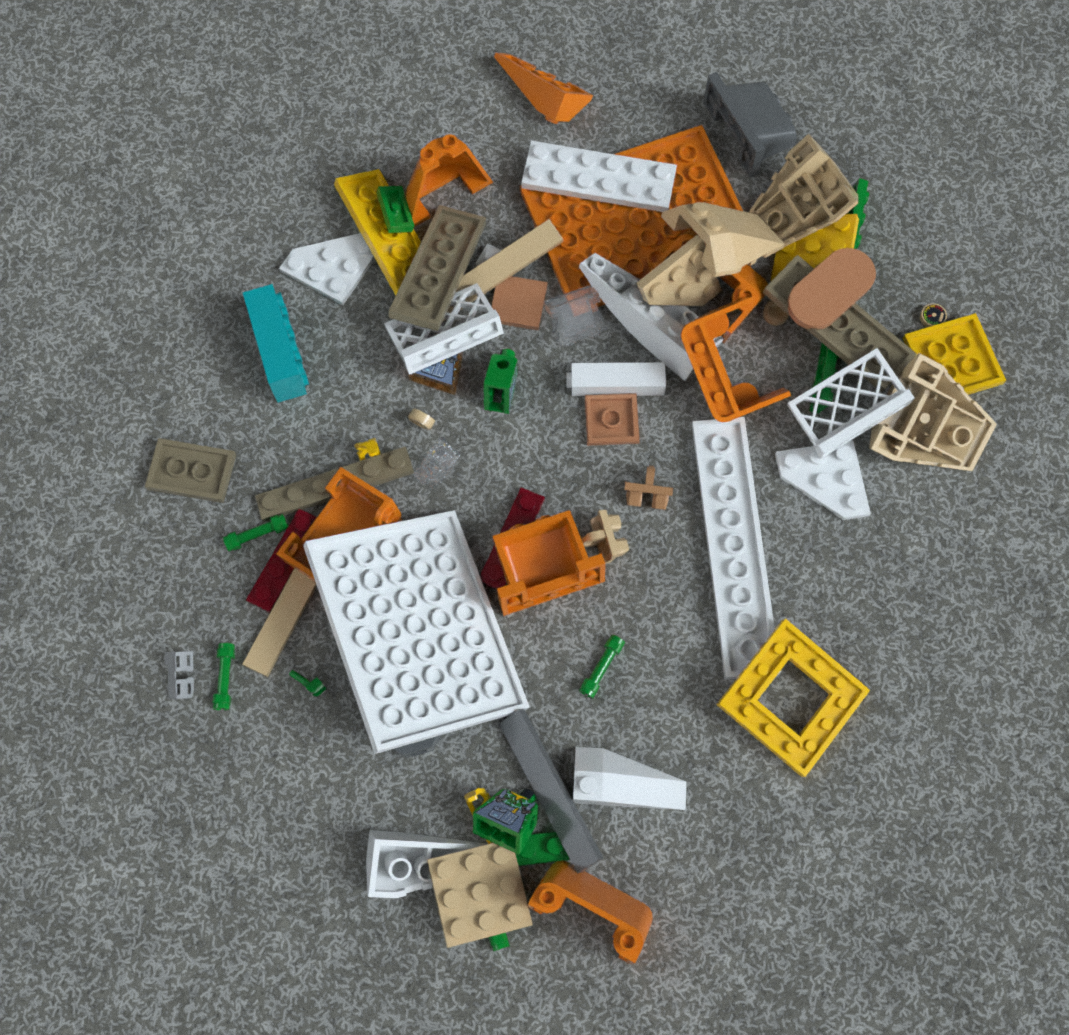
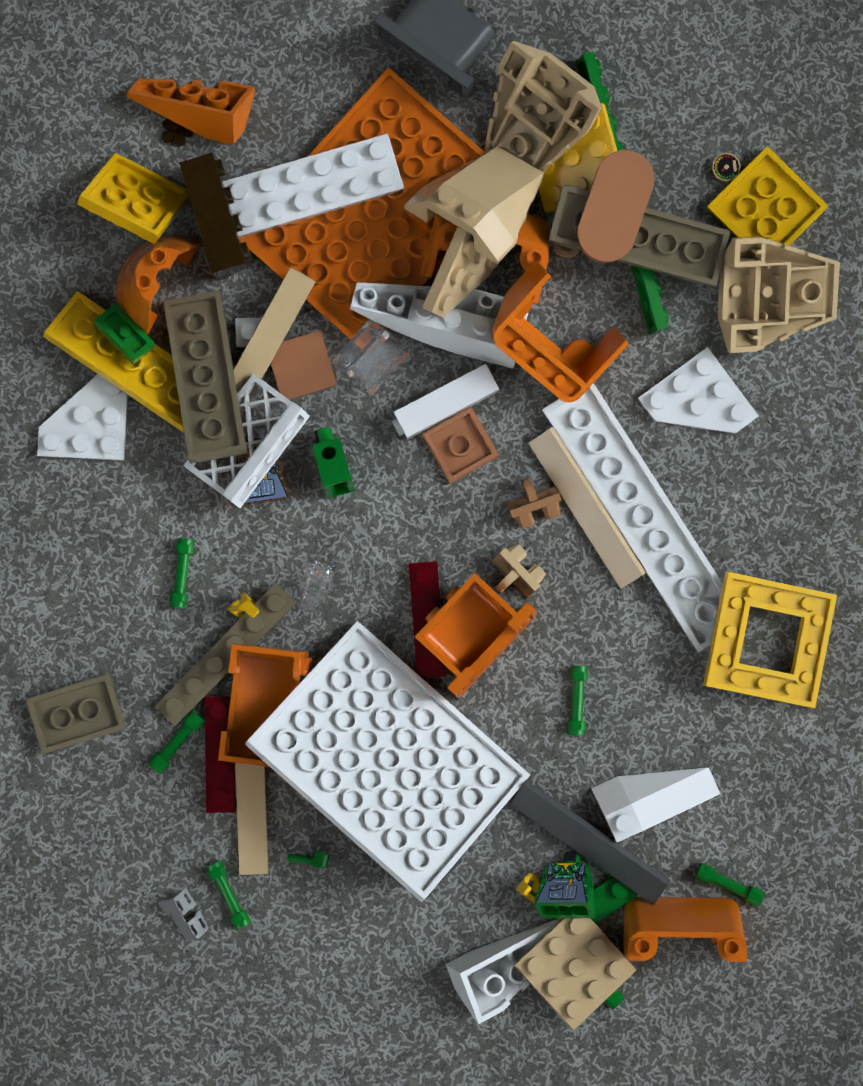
camera: 30 degrees left, 15 degrees up
(276, 343) = (86, 544): teal brick -> none
(349, 389) = (184, 548): none -> green bar
(421, 419) = (273, 544): tan tile -> none
(457, 115) = (134, 198): none -> yellow plate
(510, 158) = (214, 215): none -> dark brown slope
(517, 100) = (175, 132): none -> dark brown plant
(670, 915) = (752, 895): none -> green bar
(690, 517) = (587, 507): none -> tan tile
(862, 422) = (709, 333): white fence -> none

